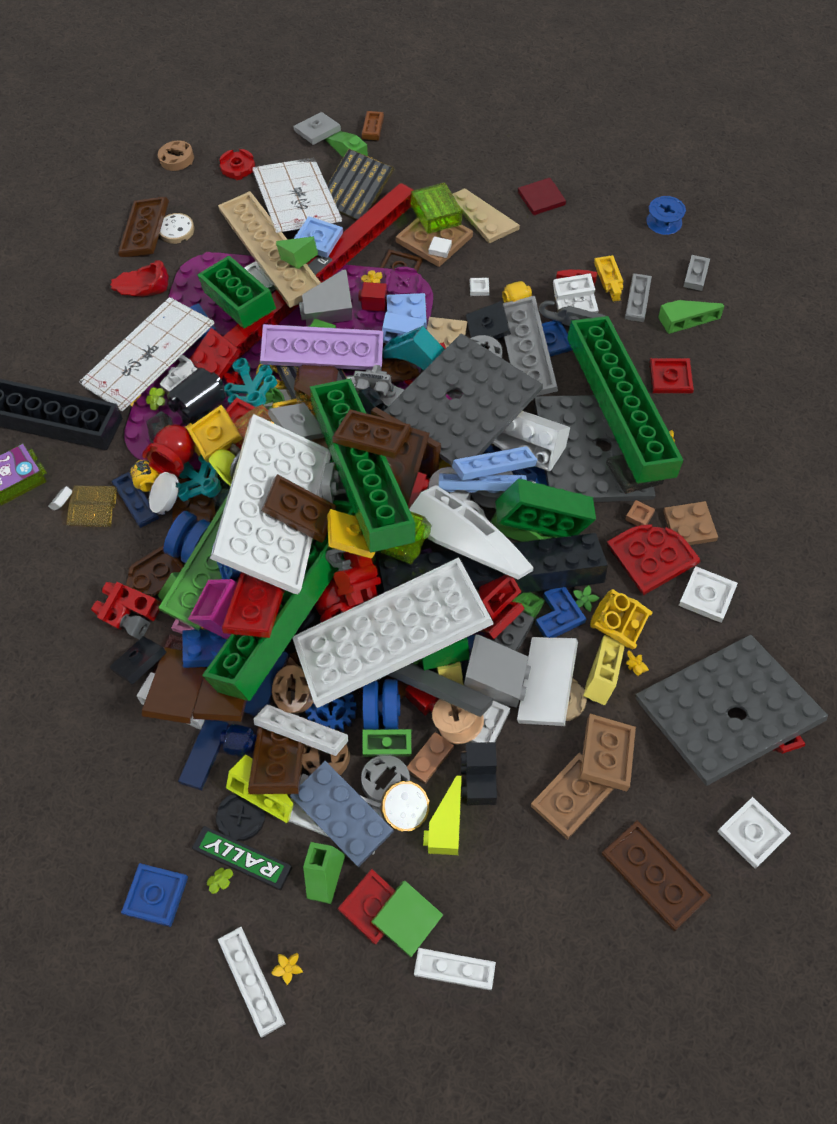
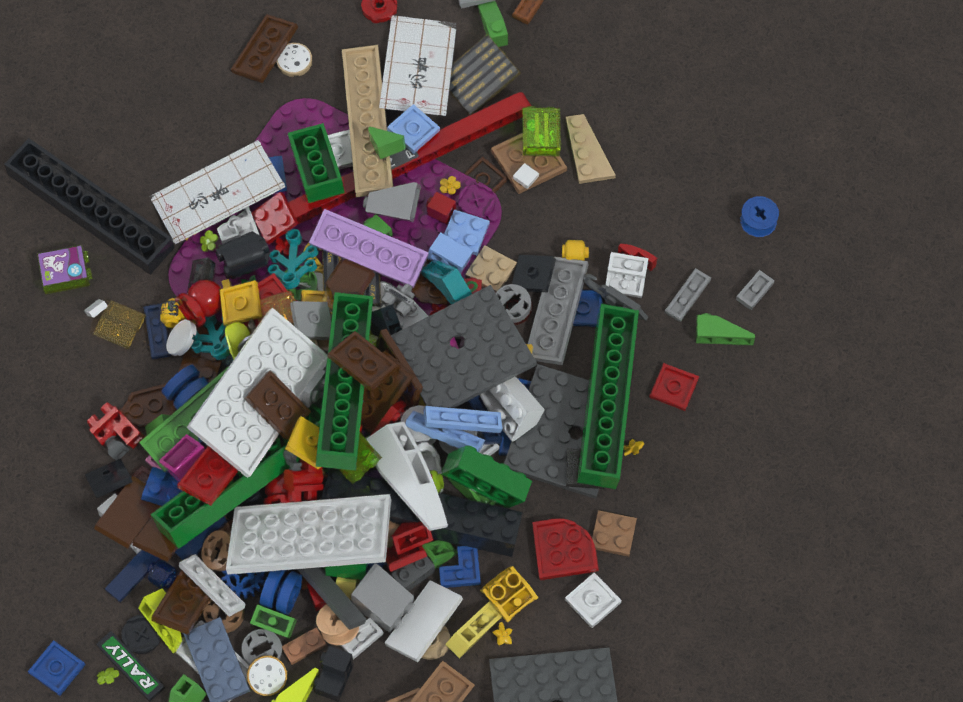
camera: 20 degrees right, 5 degrees up
(143, 282) = (240, 111): red hair -> none
(479, 286) = (546, 228): white tile -> none
(541, 196) = (654, 149): dark red tile -> none
(585, 598) = (489, 564): bright green plant -> none
(609, 276) = (671, 263): yellow hinge -> none
(640, 514) = (574, 508): nougat plate -> none

